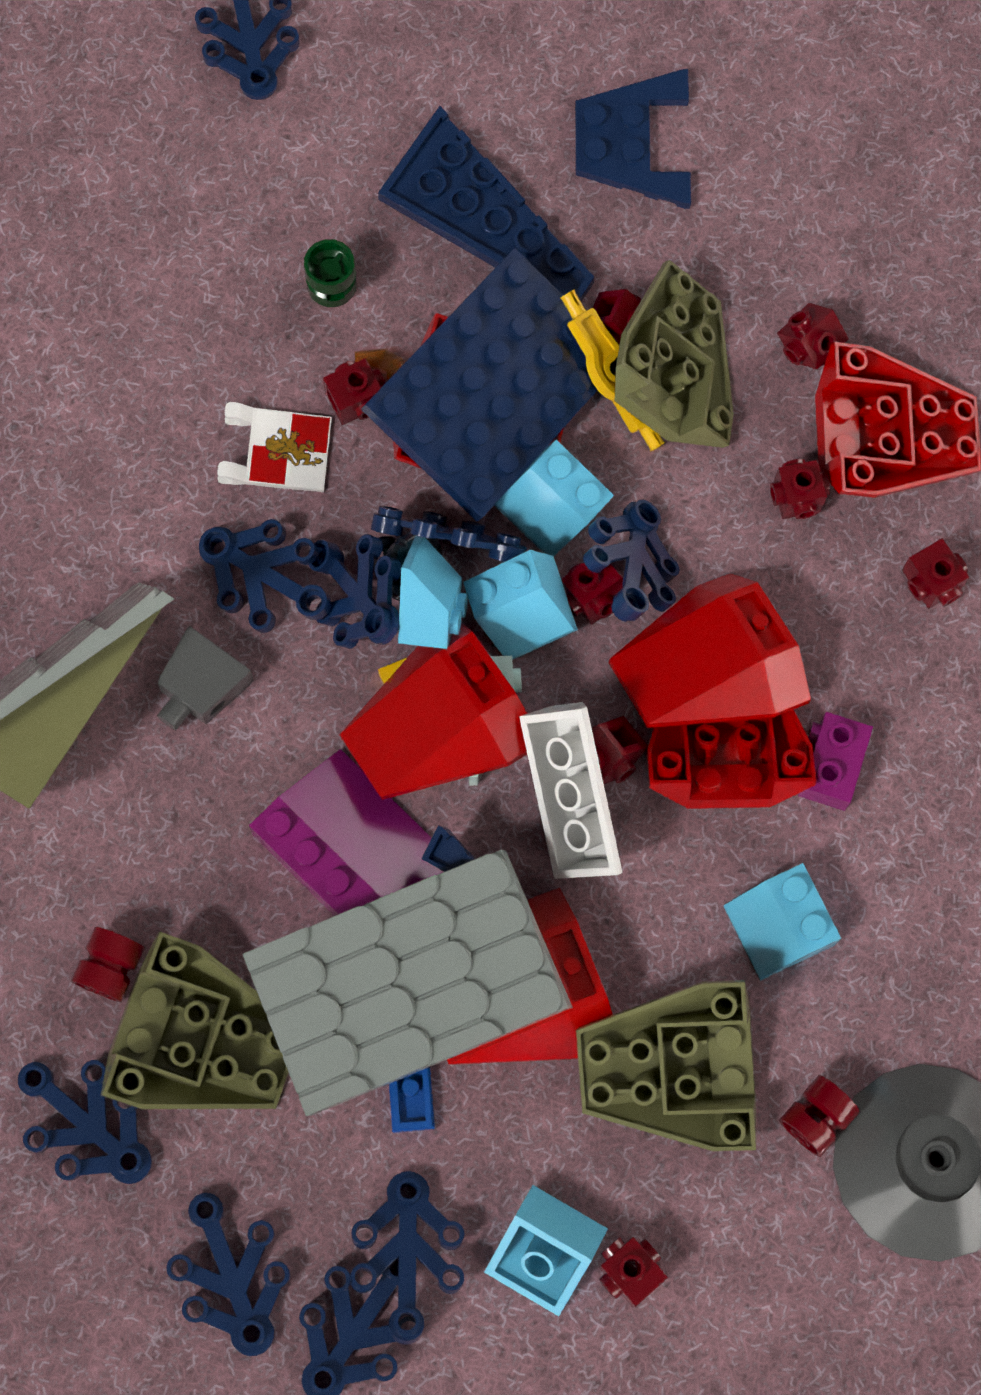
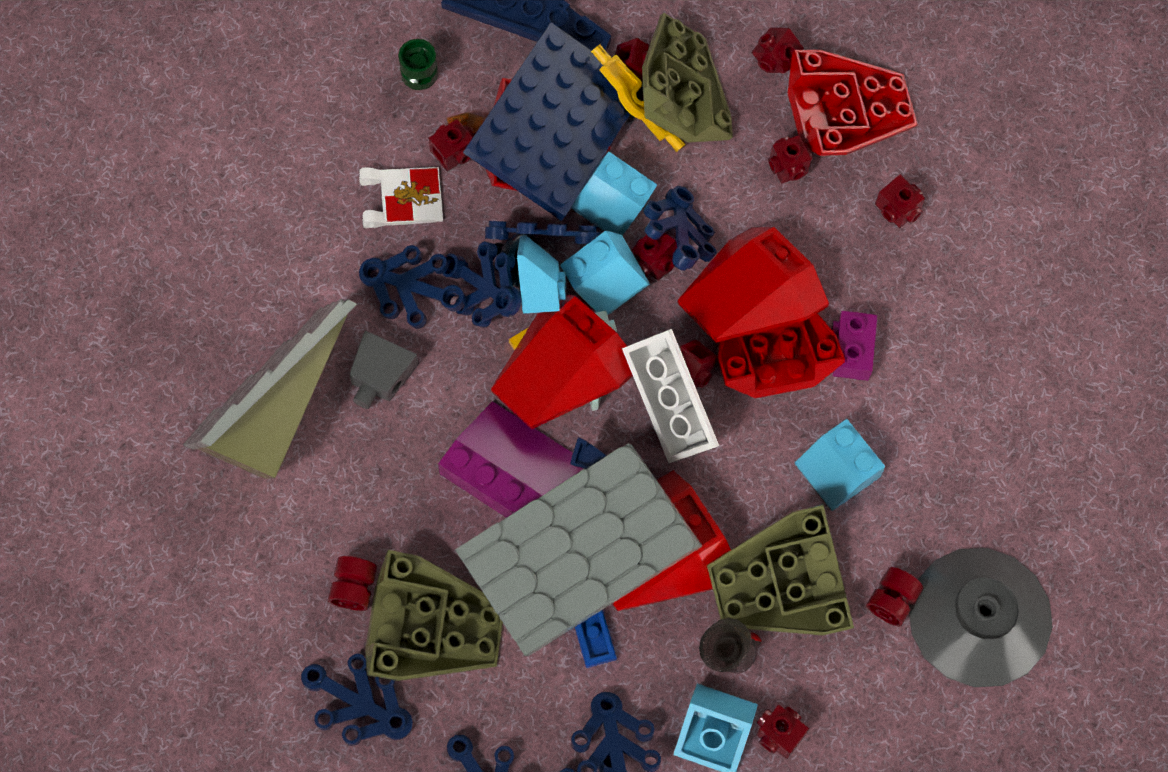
camera: 10 degrees left, 5 degrees down
(583, 1145) = (728, 646): none -> clear smoke hat

